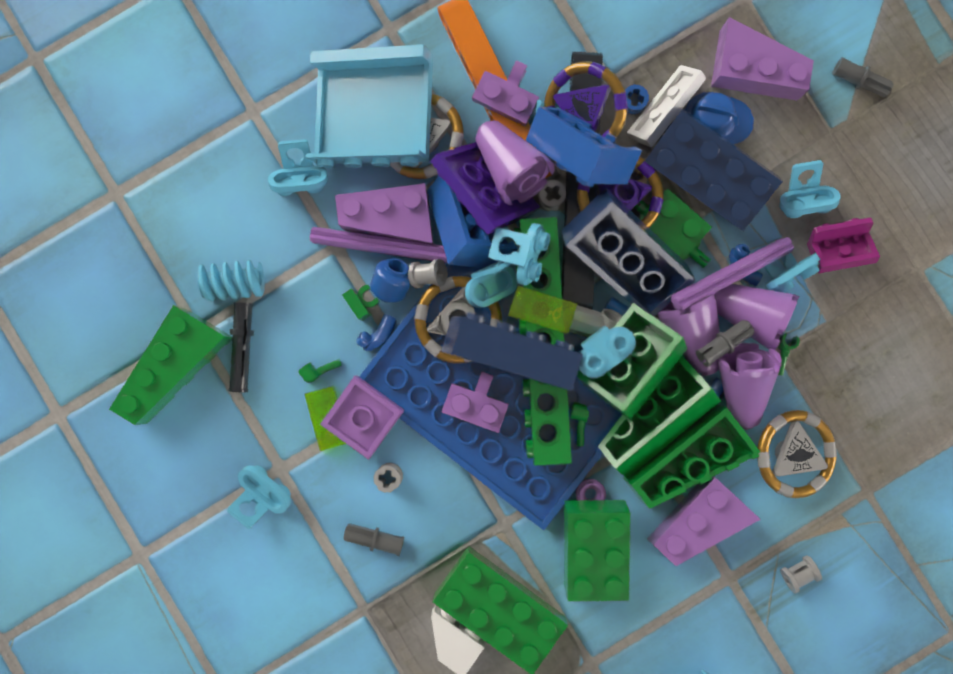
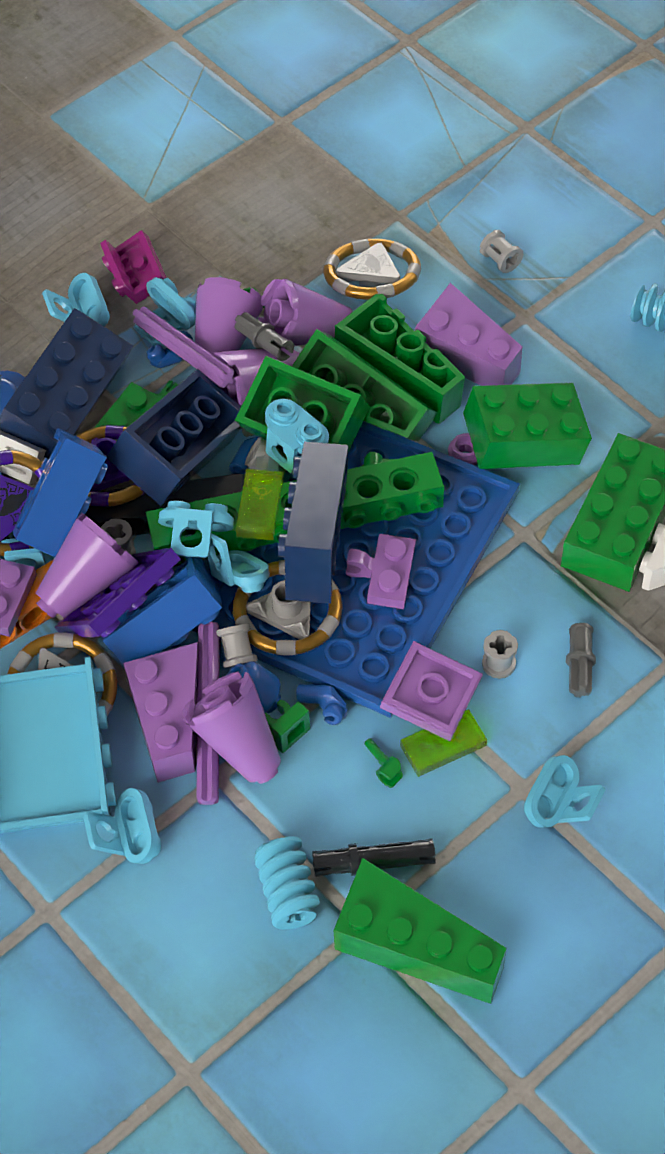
camera: 100 degrees left, 30 degrees down
(353, 257) = (235, 726): none -> medium lavender cone

